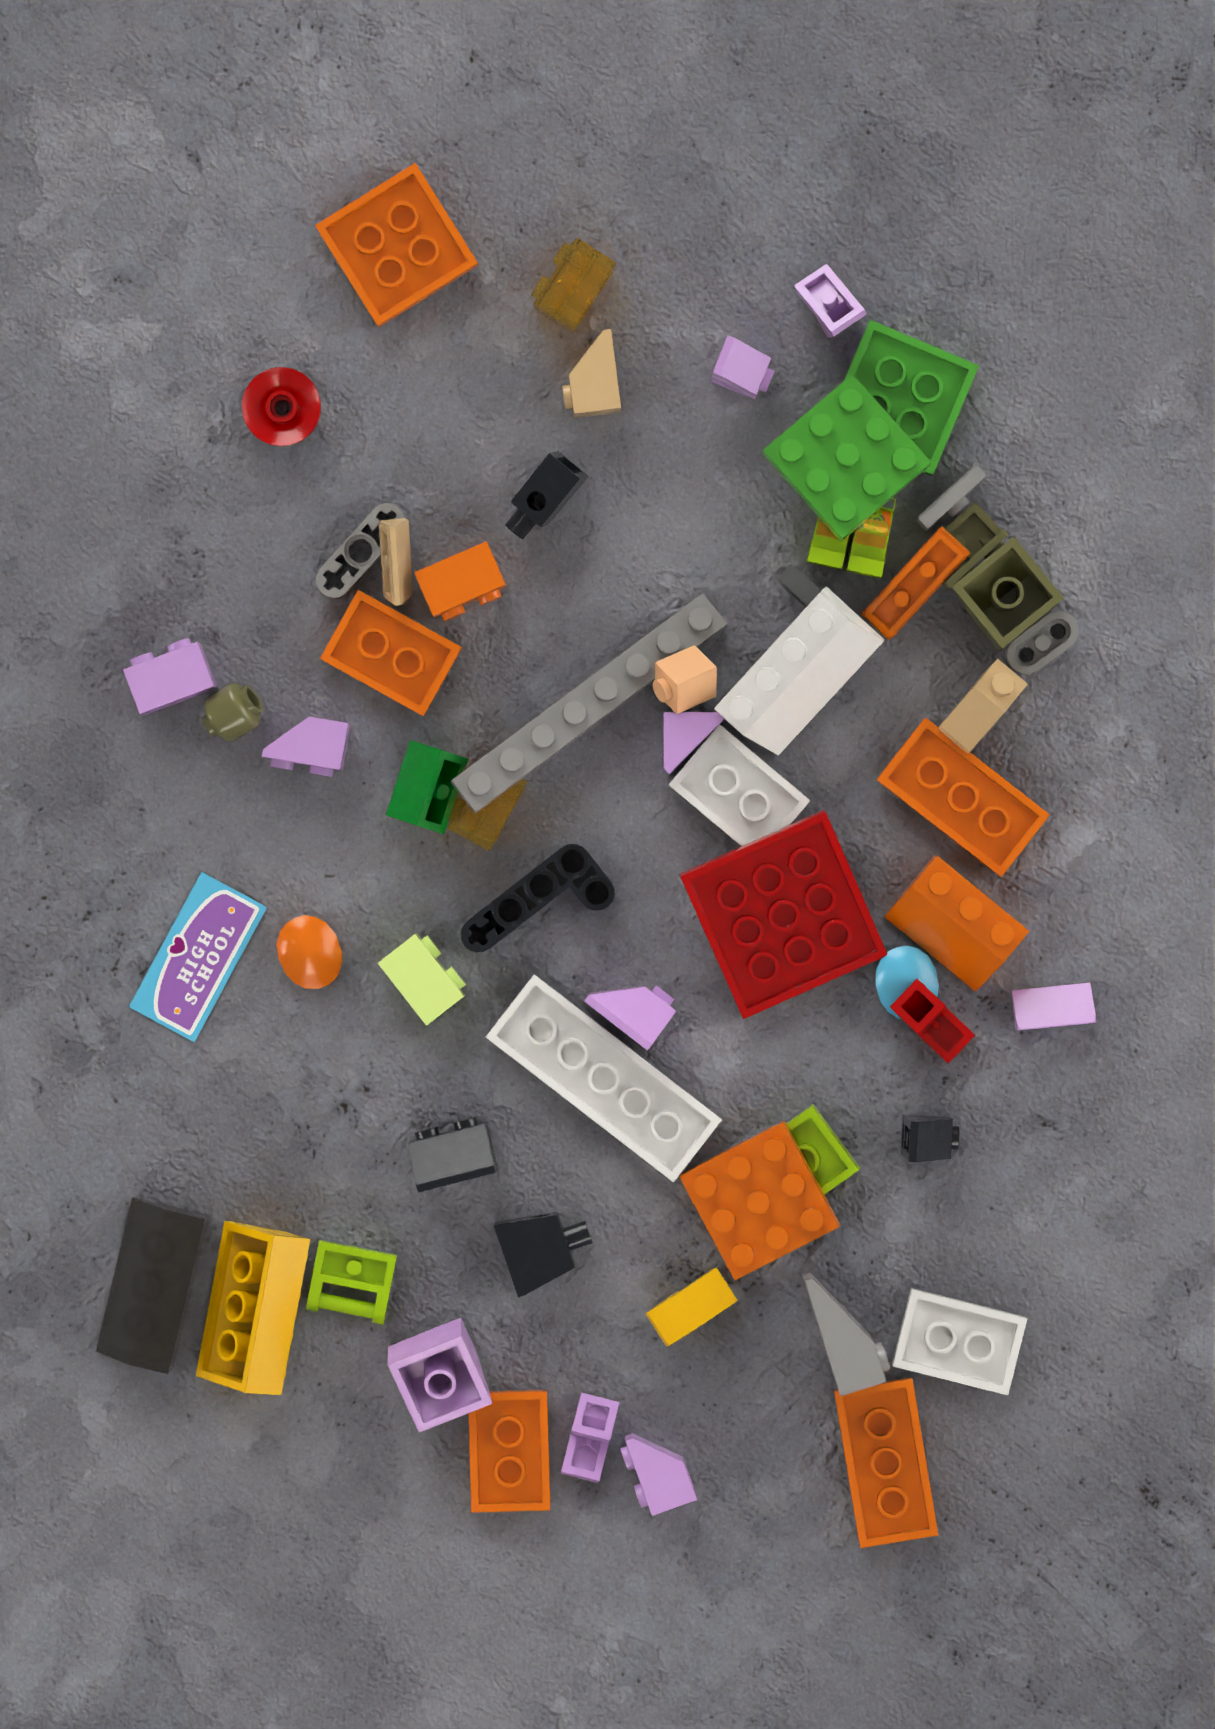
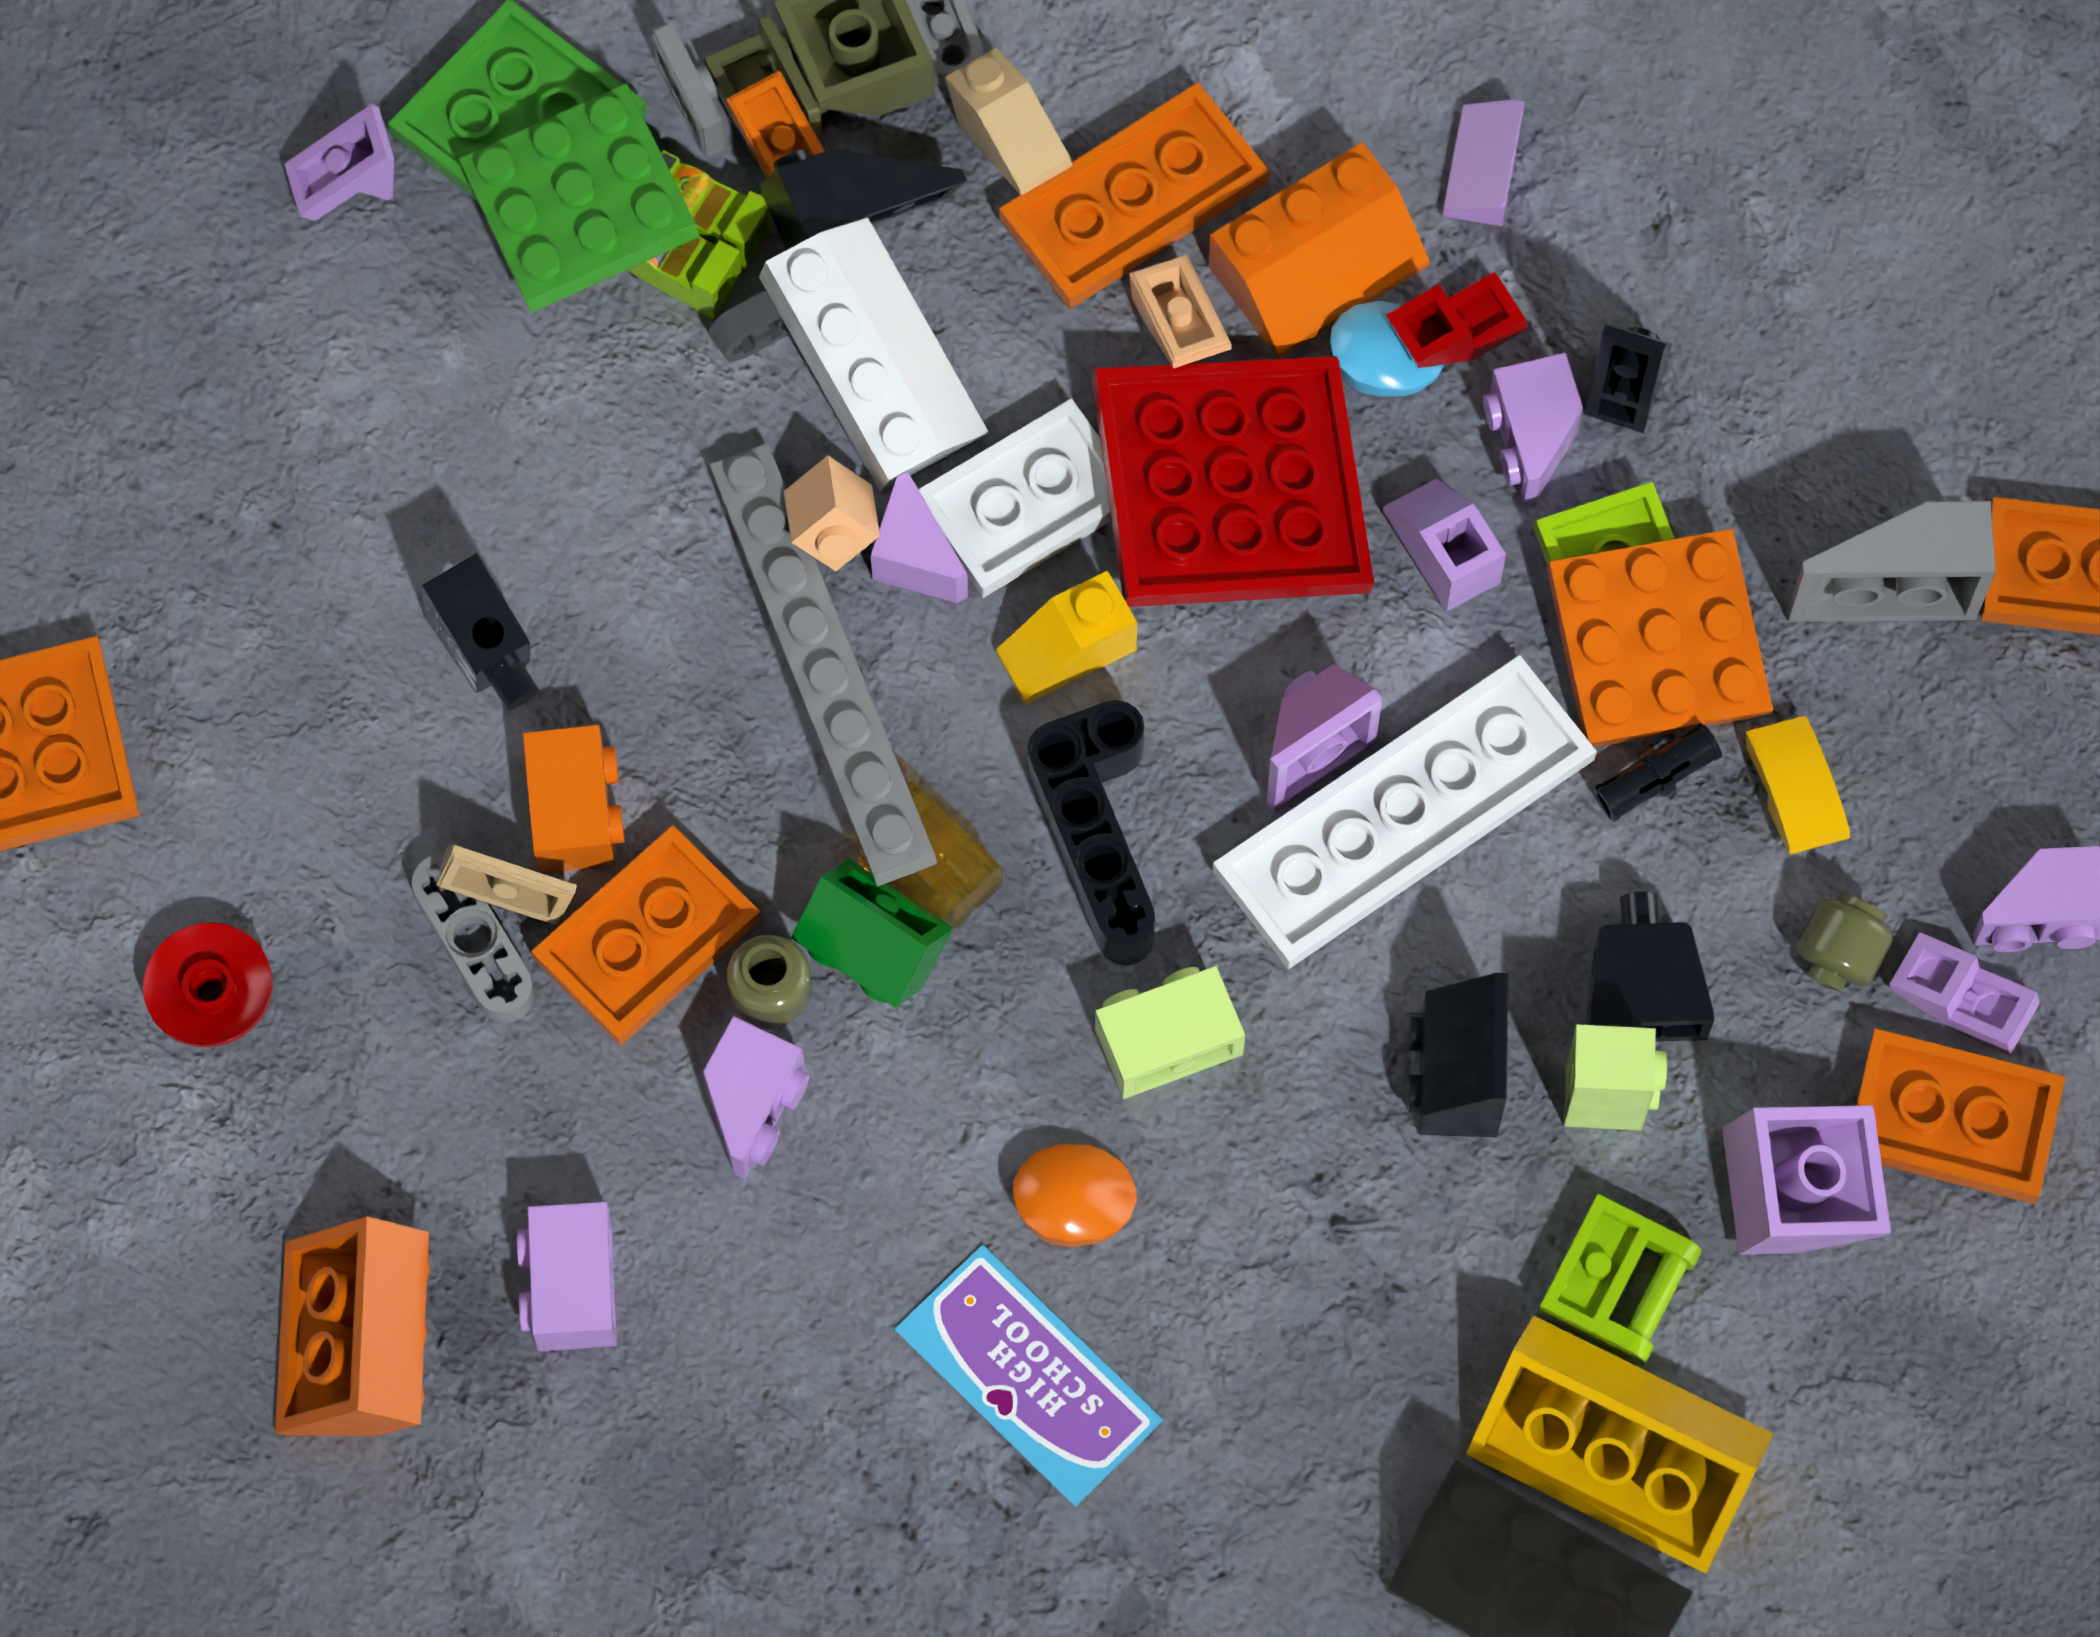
camera: 75 degrees left, 20 degrees down
(100, 563) = (353, 1330): none -> orange slope
(232, 712) = (657, 1196): olive head -> none
(373, 747) = (769, 981): none -> olive head
(463, 1247) = (1612, 1077): none -> yellowish green brick
(573, 285) = (183, 512): clear yellow brick -> none
(594, 381) = (337, 520): tan slope -> none
(596, 1360) = (1845, 942): none -> olive head
(651, 844) = (1069, 638): none -> yellow slope
(674, 1221) = (1657, 772): none -> black pin
(742, 368) = (392, 313): lavender slope -> none
(785, 1053) = (1448, 542): none -> lavender slope
(881, 1089) = (1537, 418): none -> lavender slope
(884, 850) = (1178, 311): none -> light nougat slope
(893, 615) = (844, 187): none -> black slope
(959, 1341) = (1952, 417): white plate -> none

